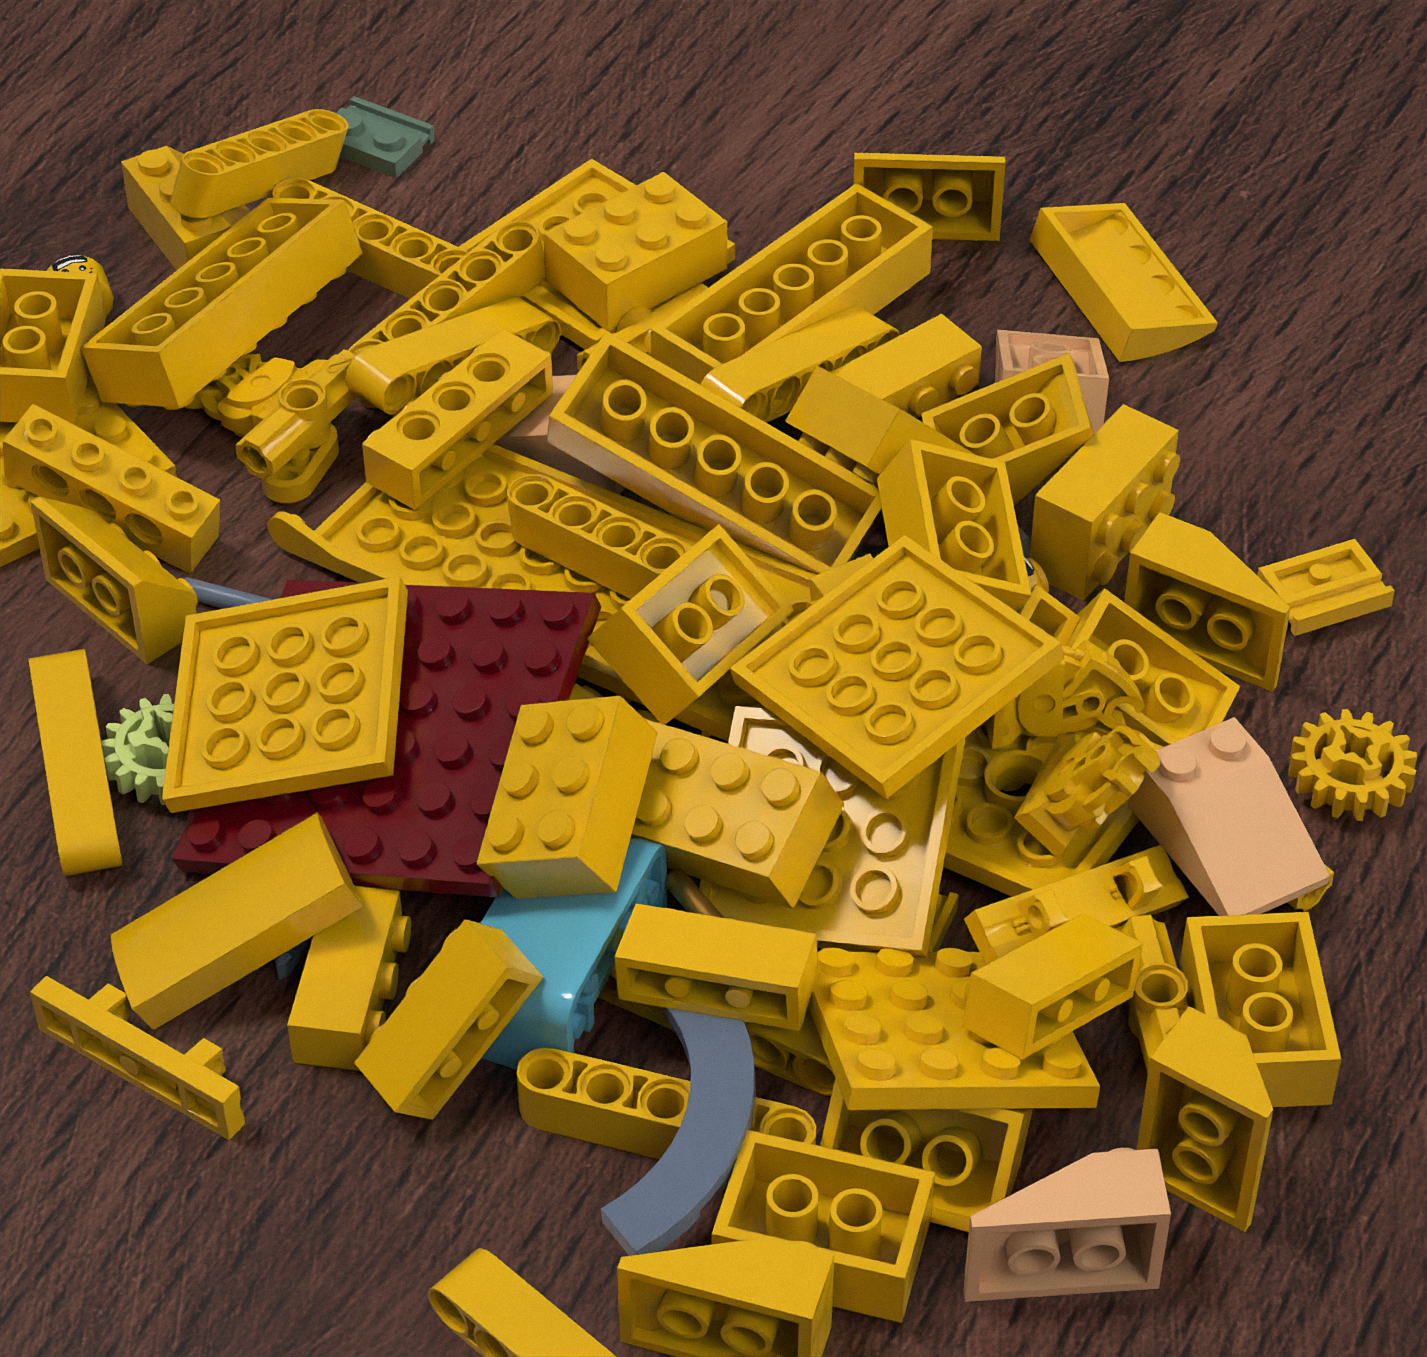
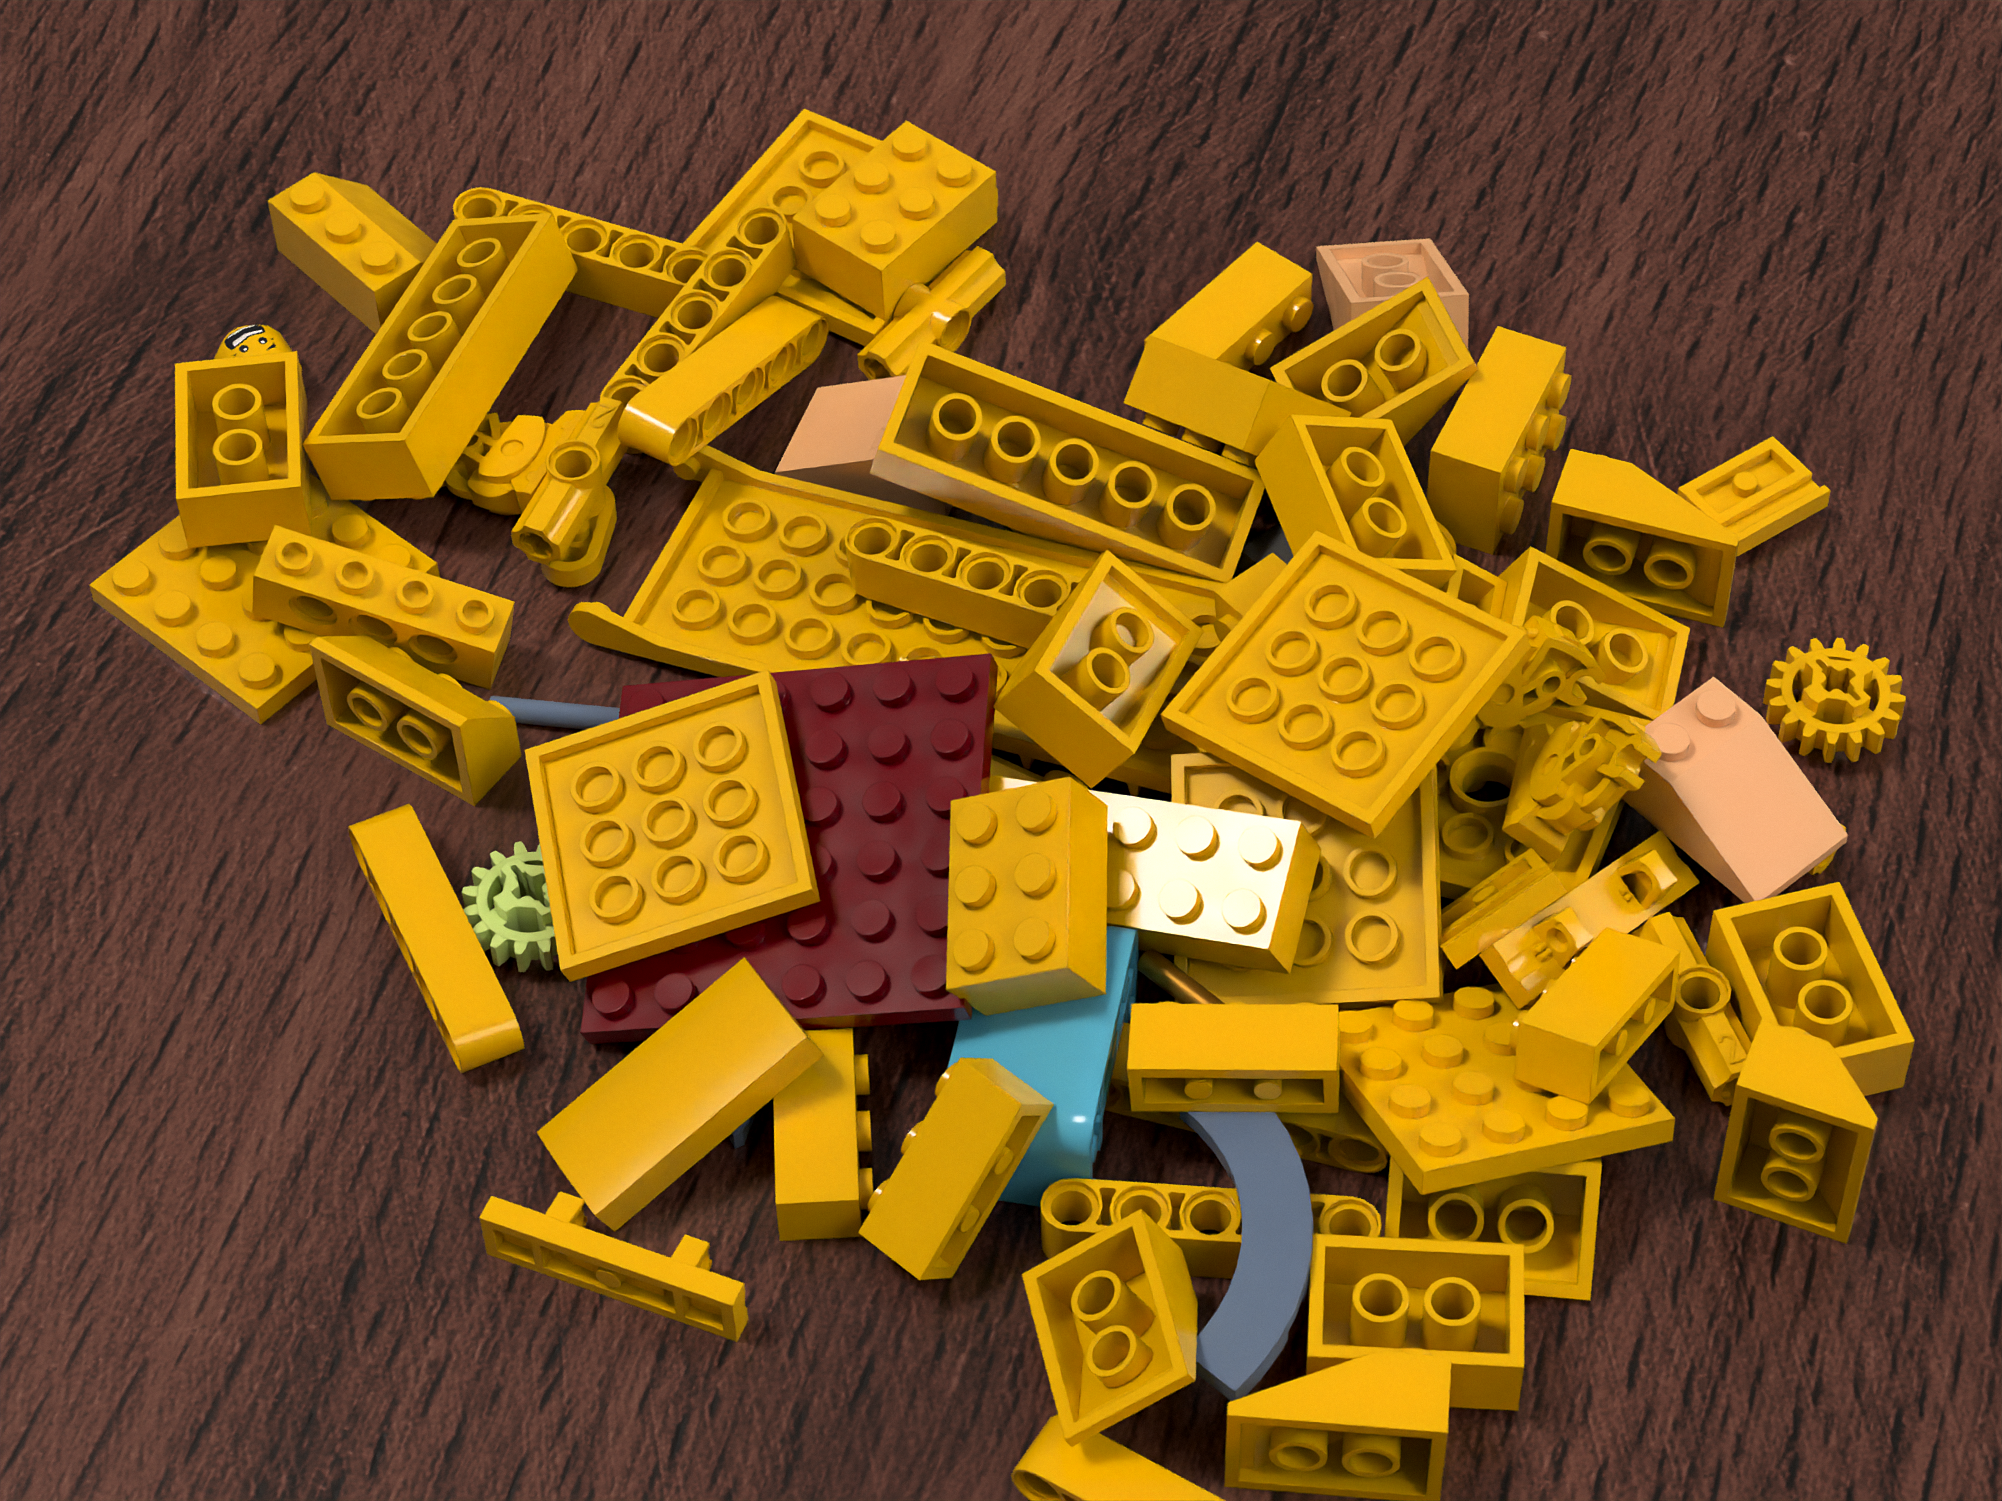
camera: 10 degrees left, 5 degrees up
(253, 163) = (427, 178): yellow beam -> none
(382, 137) = (540, 117): sand green plate -> none
(457, 418) = (753, 458): yellow brick -> none
(548, 1173) = (1114, 1324): none -> yellow slope
(774, 375) = (1109, 334): yellow beam -> none
(837, 258) = (1086, 246): yellow brick -> none
(946, 191) = (1199, 99): yellow slope -> none
(991, 882) = (1497, 906): none -> yellow plate
(1074, 1231) = (1687, 1280): light nougat slope -> none
(1120, 279) = (1436, 163): yellow slope -> none

